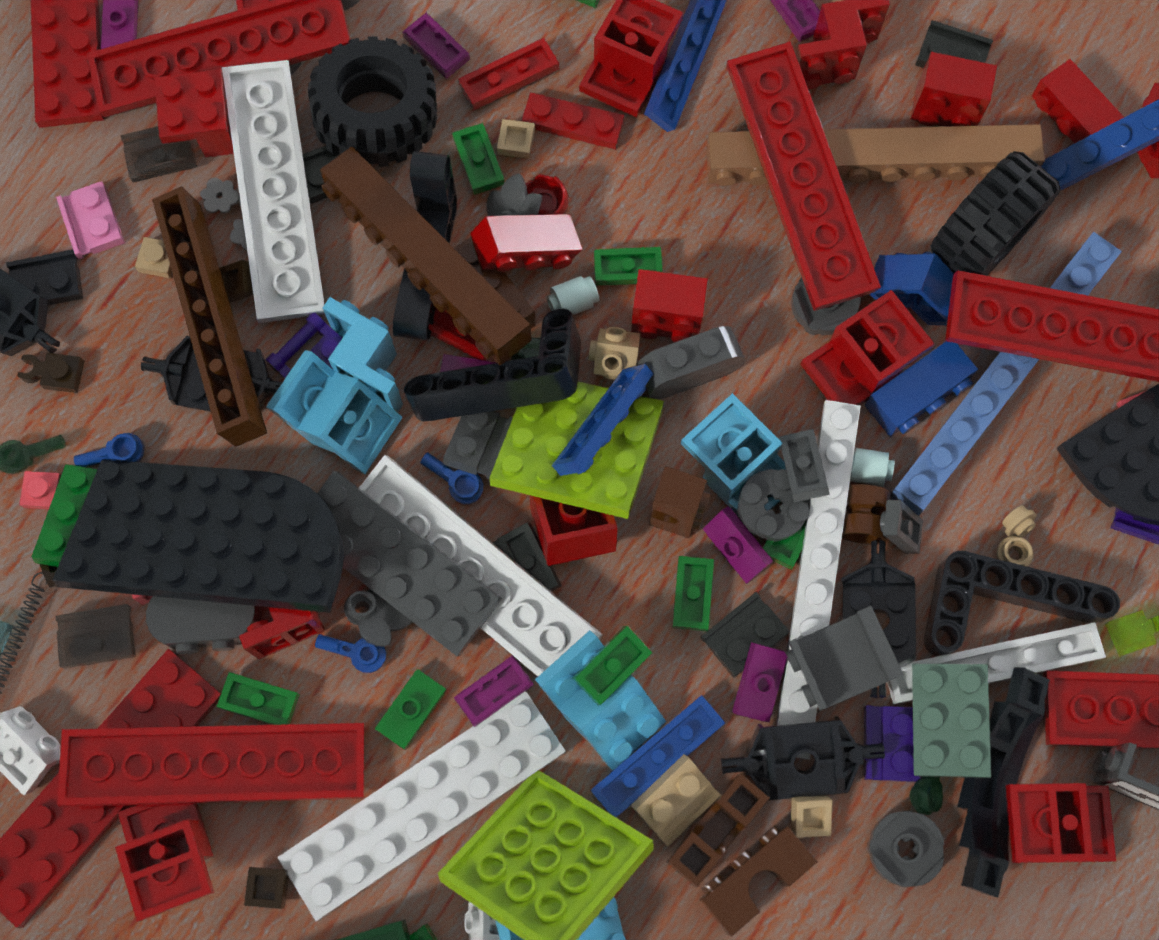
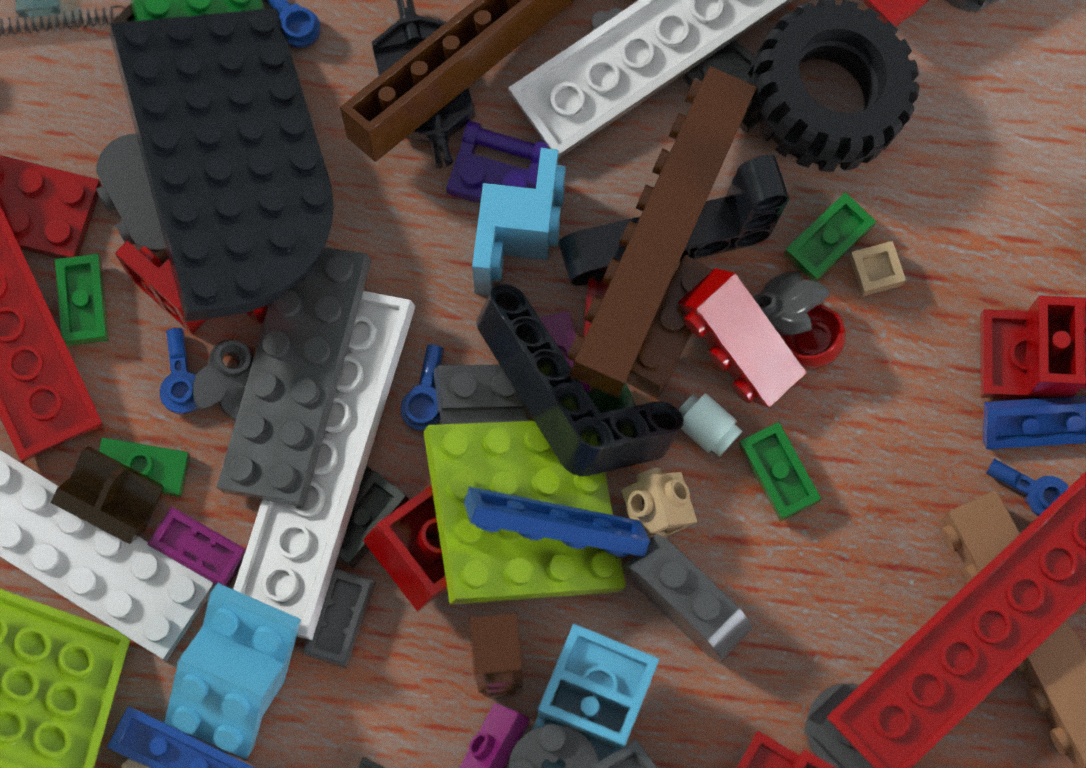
camera: 65 degrees right, 0 degrees up
(95, 636) = (80, 99): clear smoke plate -> none
(237, 280) = (545, 44): dark brown plate -> none
(334, 411) = (435, 222): medium azure bracket -> none
(423, 739) = (109, 495): none -> dark brown panel
(436, 45) = (950, 123): magenta plate -> none
(508, 74) = (957, 222): red plate -> none
(573, 120) = (937, 325): red plate -> none
(594, 607) = (340, 618): none -> dark grey plate
(612, 665) = (266, 661): green plate -> none
(668, 305) = (743, 539): red brick -> none
(693, 593) = (409, 724): green plate -> none
(723, 110) = (1037, 493): none -> blue plate

